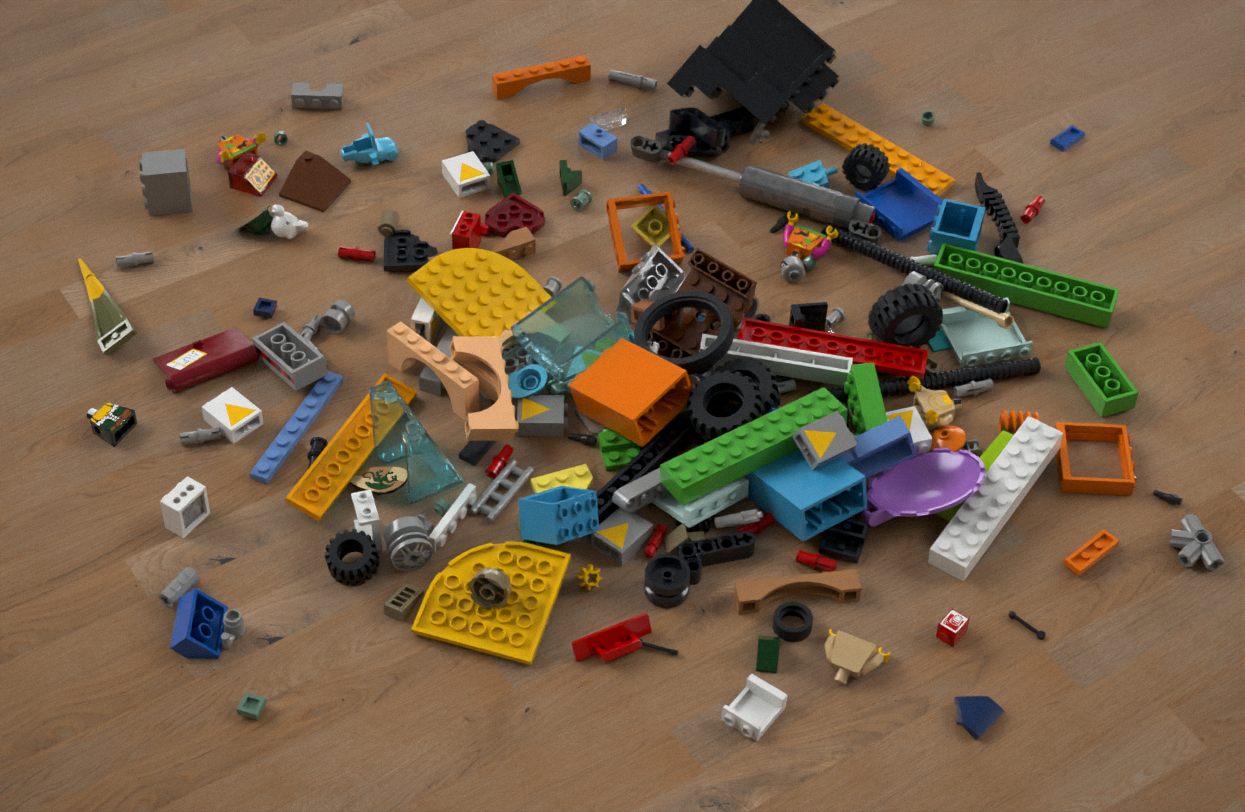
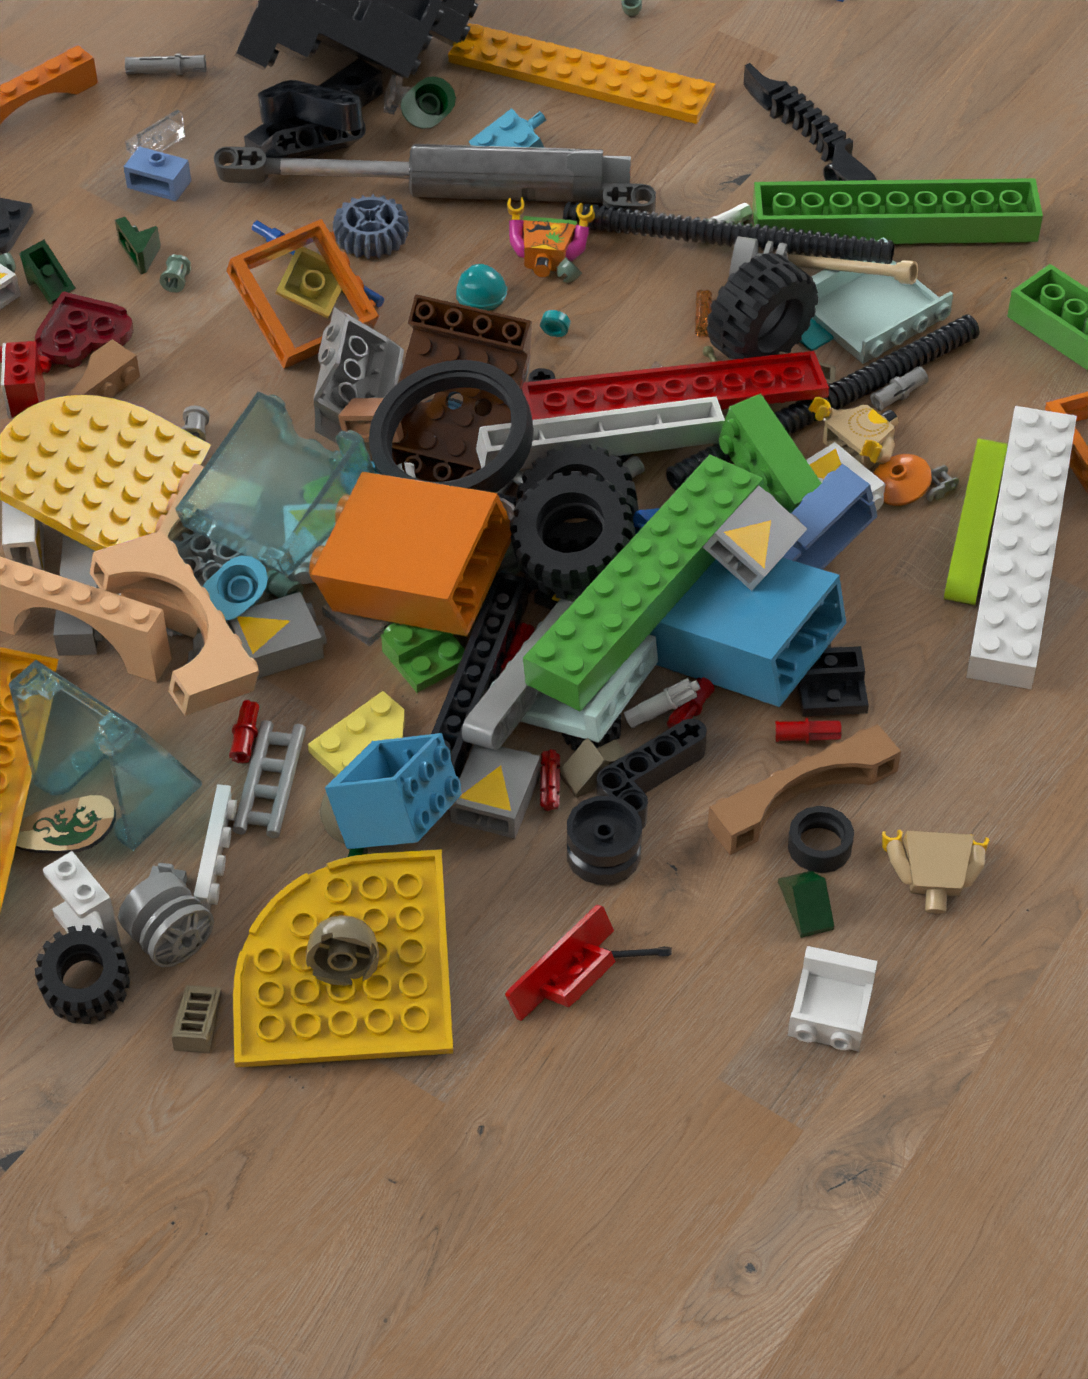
camera: 20 degrees left, 5 degrees up
(251, 706) = (26, 1292): sand green plate -> none
(441, 507) = (189, 838): sand green plate -> none
(475, 450) = (196, 729): black tile -> none
(583, 438) = (360, 651): black piece -> none
(583, 576) = (478, 874): yellow gear -> none
(681, 150) = (300, 150): red axle -> none
(705, 205) = (370, 226): none -> sand blue gear
(752, 259) = (481, 287): none -> teal hat
(773, 143) = (428, 102): none -> dark green piece
(782, 221) = (494, 221): black piece -> none
(785, 291) = (555, 323): none -> teal tile
(792, 267) = (548, 286): light grey head -> none
(809, 315) = (613, 351): black bracket -> none
(837, 315) = (648, 338): light grey pin -> none
(866, 166) = (586, 83): black tyre -> none
(902, 205) = (665, 141): blue panel -> none
(924, 485) = (918, 558): medium lavender dish -> none
(952, 627) = (1057, 767): red brick -> none
(956, 225) = (759, 150): dark azure container -> none
(1014, 421) = (987, 419): orange piece -> none
(1032, 209) = (846, 97): red pin -> none

